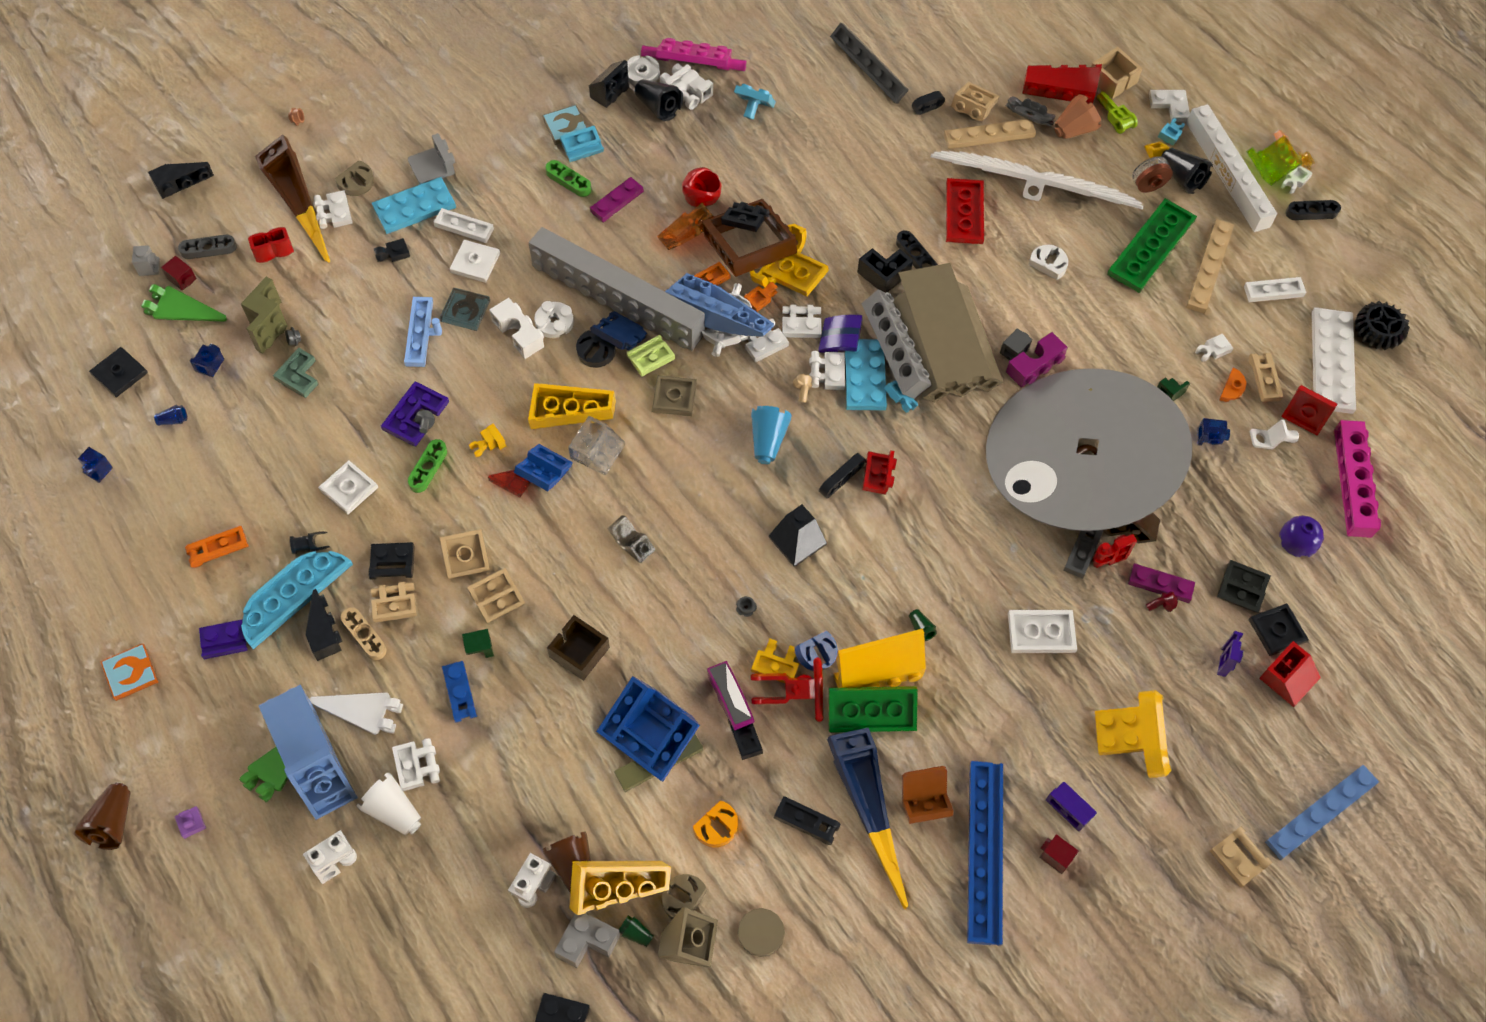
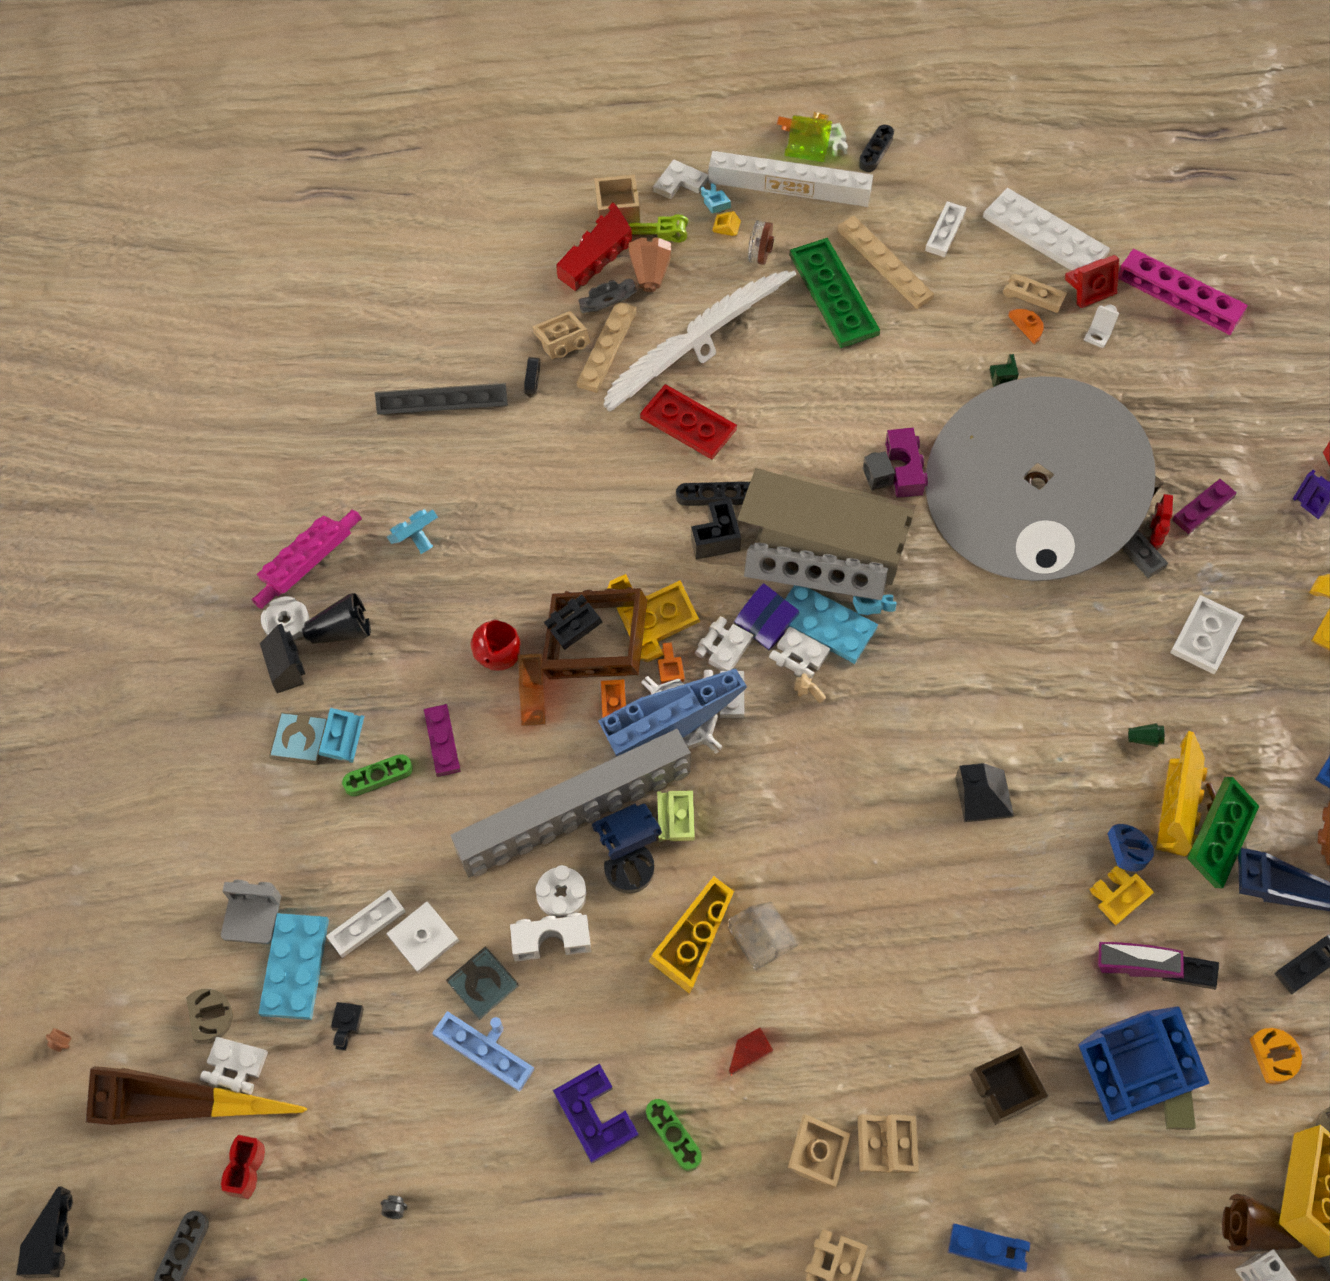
camera: 55 degrees left, 0 degrees up
(264, 315) = (348, 1225): olive bracket -> none
(293, 373) = (449, 1234): sand green plate -> none
(348, 487) = (650, 1243): white plate -> none
(390, 555) = (770, 1236): black plate -> none
(425, 420) = (612, 1105): dark grey plate -> none
(478, 642) = (944, 1194): dark green panel -> none
(491, 438) = (681, 1045): yellow piece -> none
(543, 467) = (752, 1006): blue slope -> none
(630, 540) = (897, 961): clear smoke slope -> none
(674, 395) = (738, 820): dark tan tile -> none
(689, 81) = (338, 581): white hips -> none
(746, 601) = (1040, 882): dark grey plate -> none
(768, 432) = (850, 752): dark azure cone -> none
(797, 688) = (1165, 889): red piece -> none
(842, 475) = (936, 710): black beam -> none
(878, 472) = (953, 673): red bracket -> none
(1053, 270) = (784, 391): white piece -> none
(1168, 601) = (1229, 511): dark red plate -> none
(1188, 170) = (771, 208): black cone -> none
(1213, 431) = (1072, 366): clear blue brick -> none
(1216, 346) = (977, 312): white plate -> none
(1243, 586) = (1242, 444): pearl dark grey slope -> none
(1278, 629) = (1299, 444): black tile -> none
(1302, 536) = (1216, 367): dark purple cylinder -> none
(1378, 330) = (1035, 175): black gear -> none

